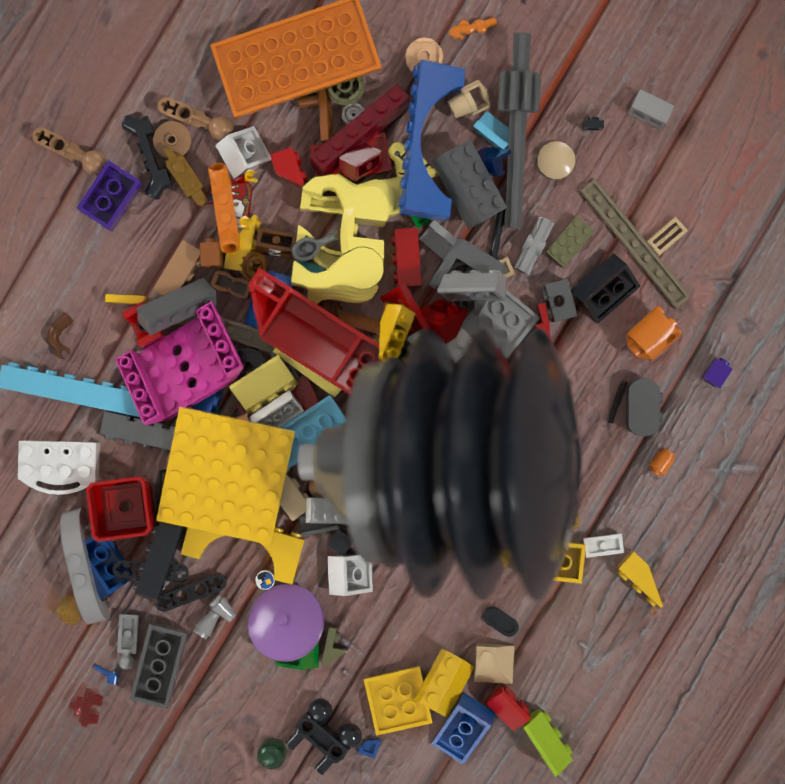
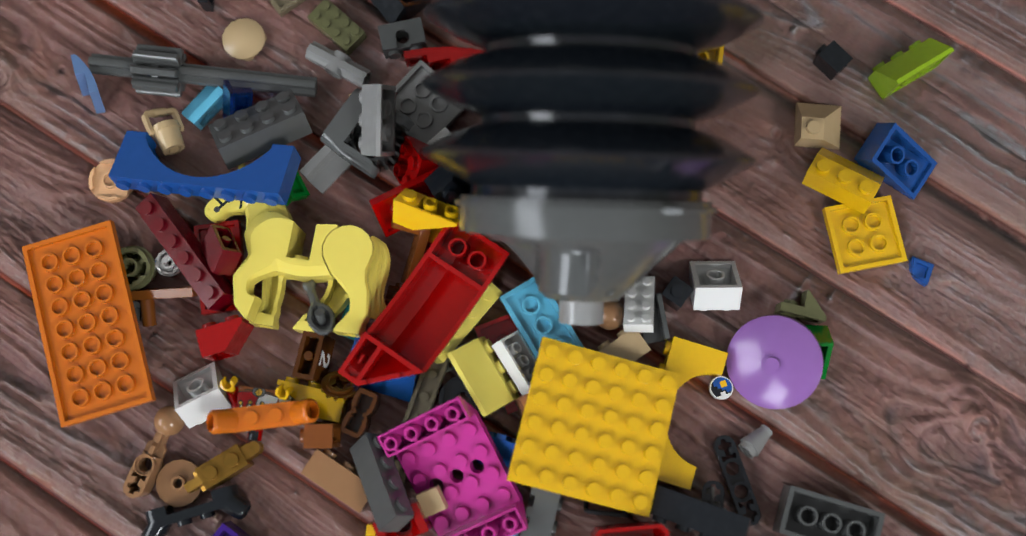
camera: 80 degrees left, 10 degrees down
(163, 347) = (432, 501): none -> tan tile
(206, 625) = (776, 461): light grey cone -> none
(272, 753) = (932, 387): clear green hair -> none
(323, 736) = (910, 323): black piece -> none
(406, 257) = (340, 205): red brick -> none
(466, 28) = (83, 134): orange animal -> none
(497, 234) = (316, 104): black bar -> none
(500, 621) = (769, 116): black tile -> none
(506, 706) = (870, 106): red slope -> none
(508, 29) = (87, 83): none -> medium blue slope
(552, 675) = (831, 59): none -> black brick

